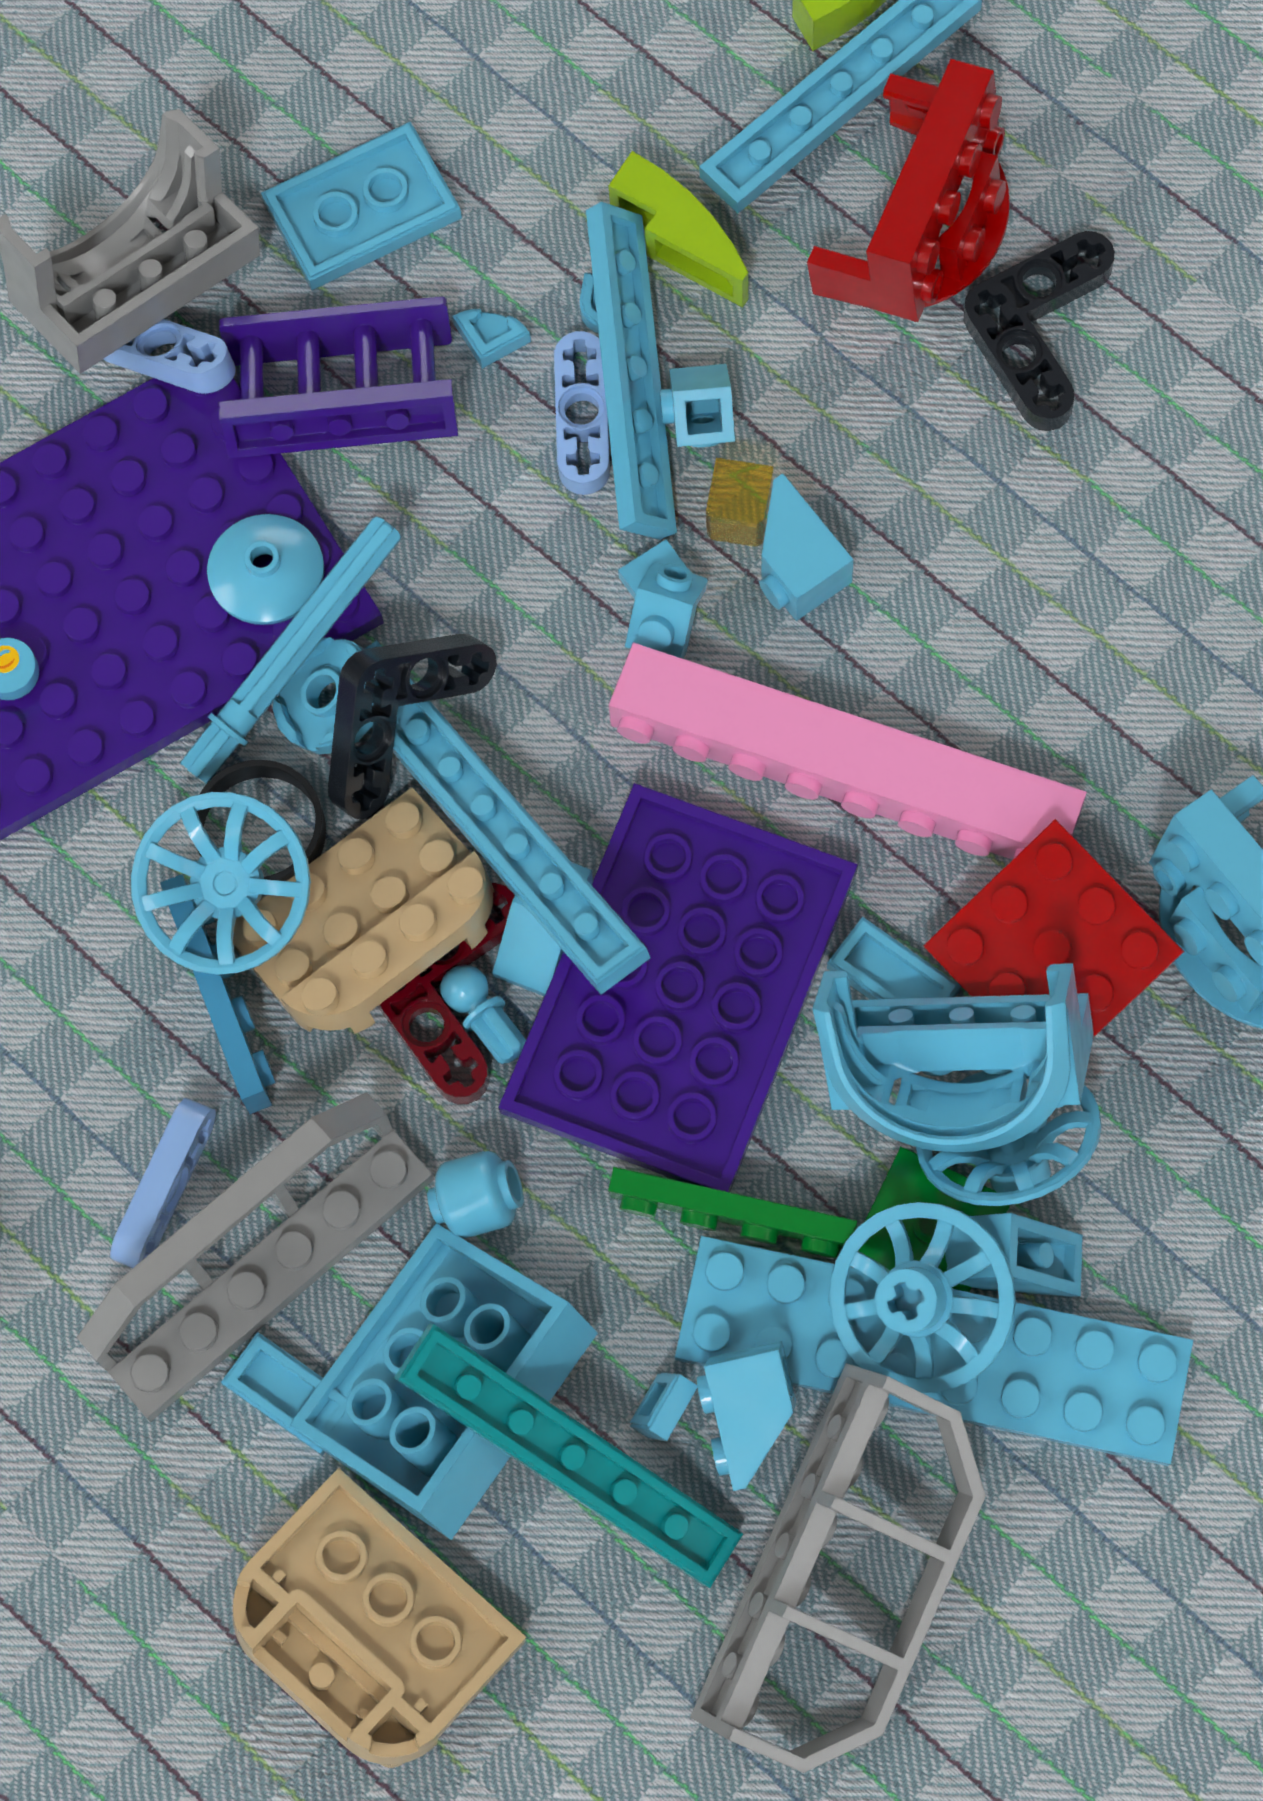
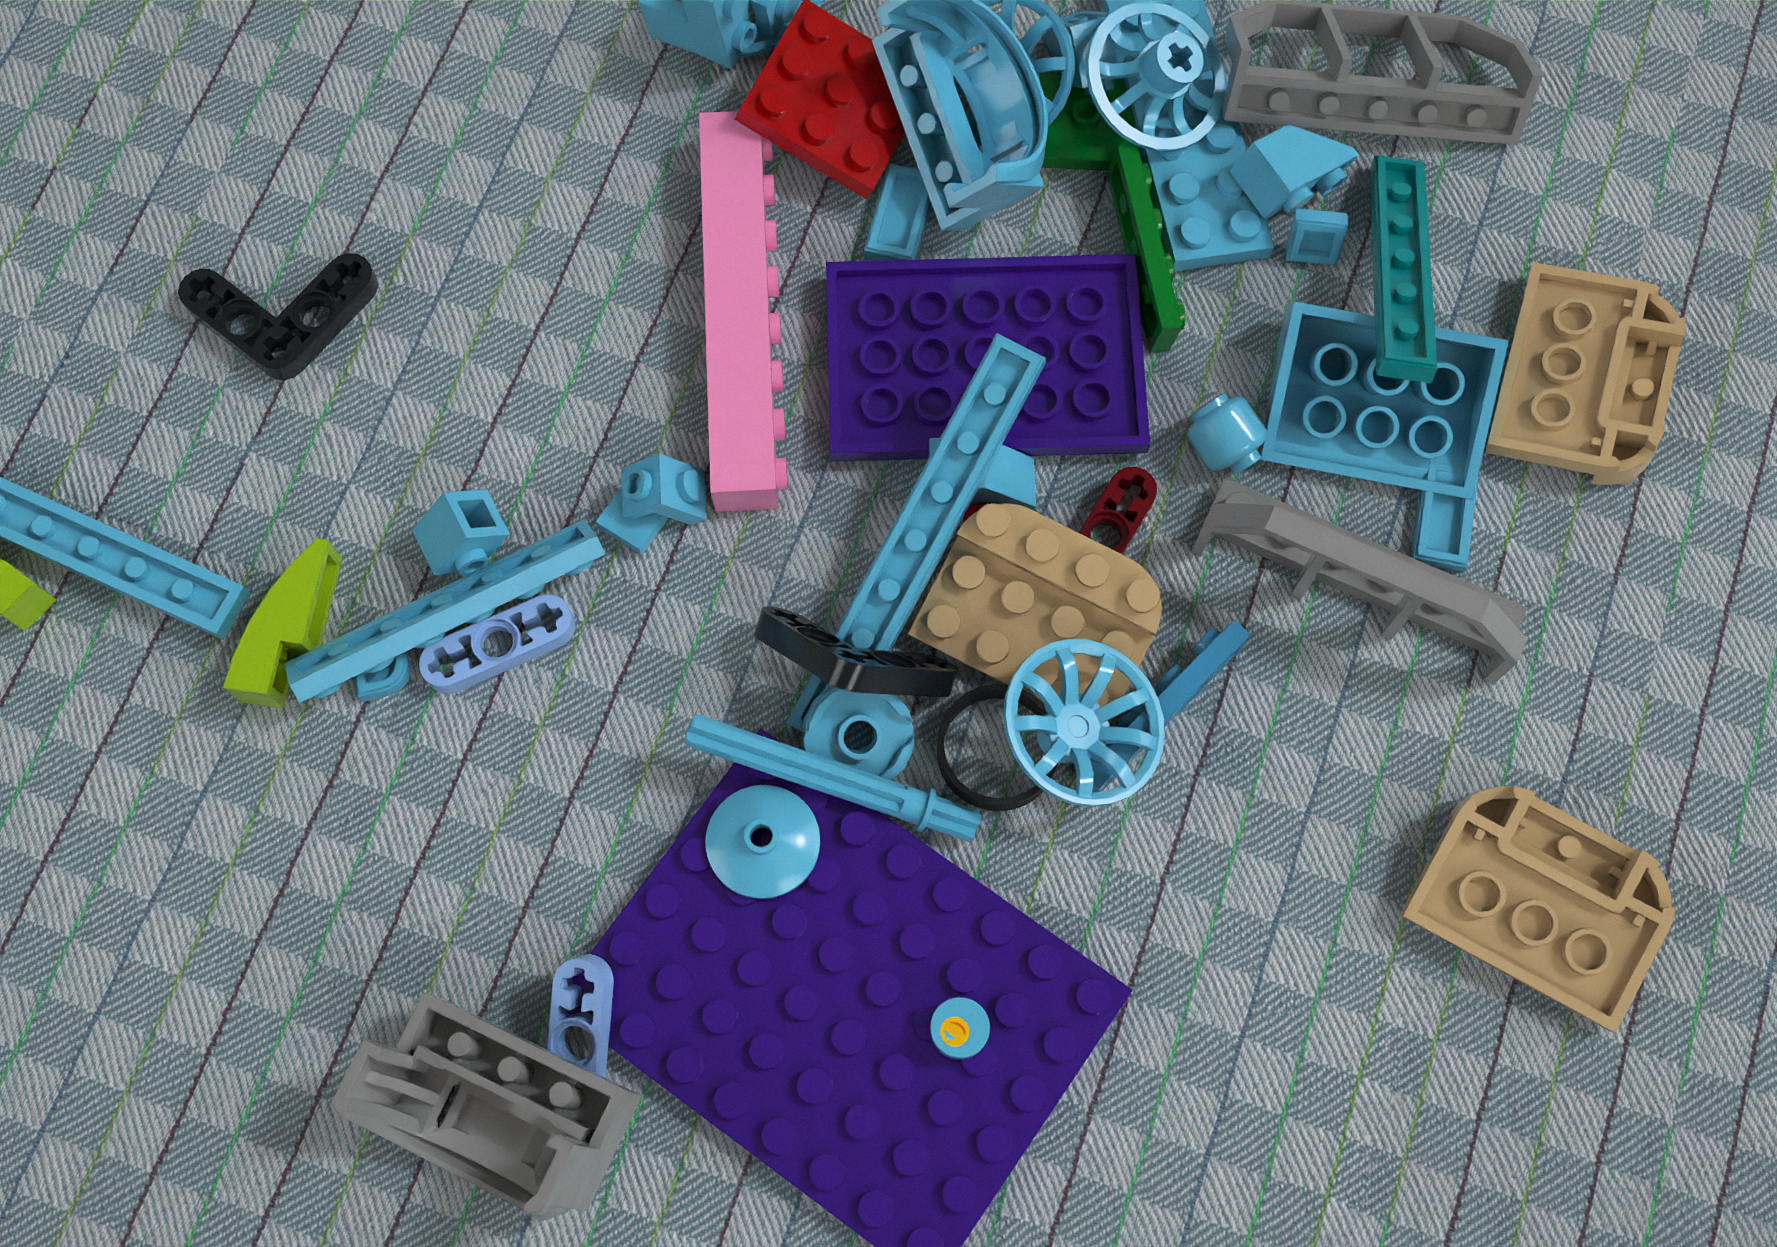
camera: 120 degrees left, 0 degrees up
(163, 1182) = (1340, 679): light blue beam -> none
(345, 416) = (602, 858): dark purple fence -> none
(361, 205) = (351, 936): medium azure tile -> none
(466, 991) = (1078, 490): medium azure axle -> none
(490, 334) = (447, 758): medium azure tile -> none
(739, 502) = (538, 473): clear yellow piece -> none
(800, 554) = (567, 411): medium azure slope -> none
(954, 139) = (116, 403): red piece -> none

